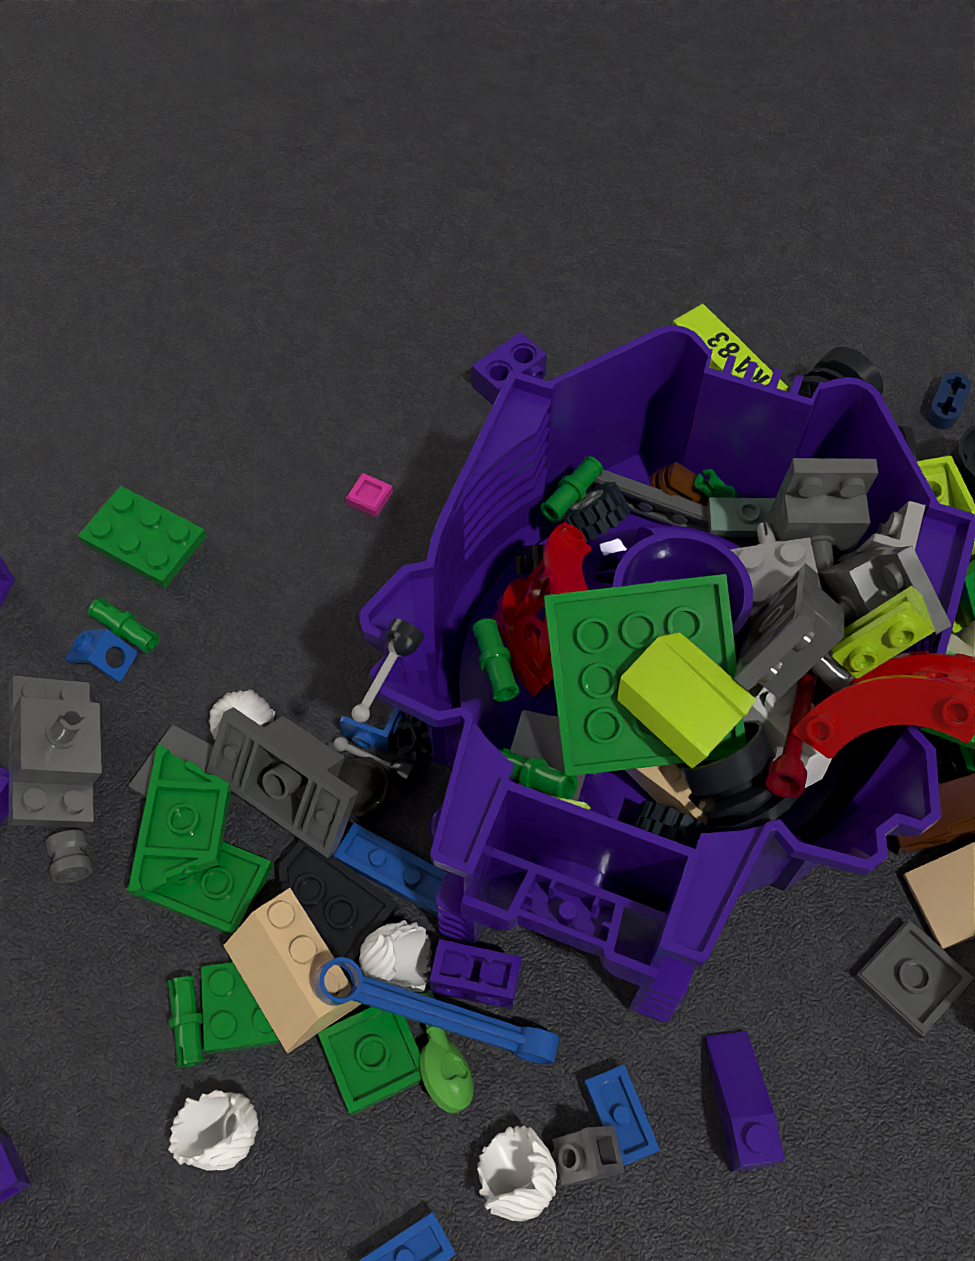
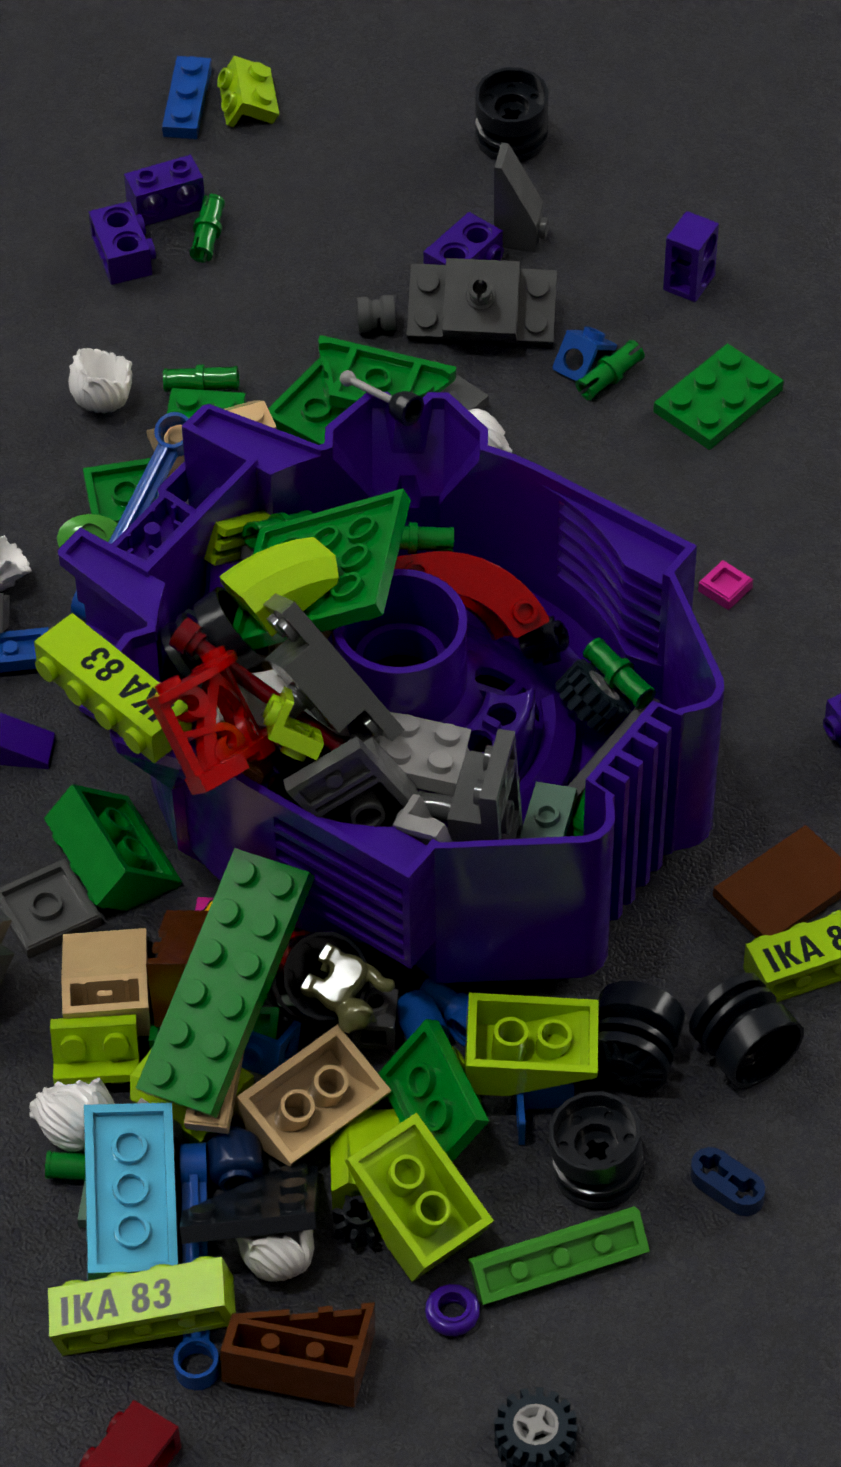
camera: 105 degrees right, 10 degrees down
(835, 930) = (110, 848): none -> green slope
(897, 828) = (105, 684): none -> lime brick

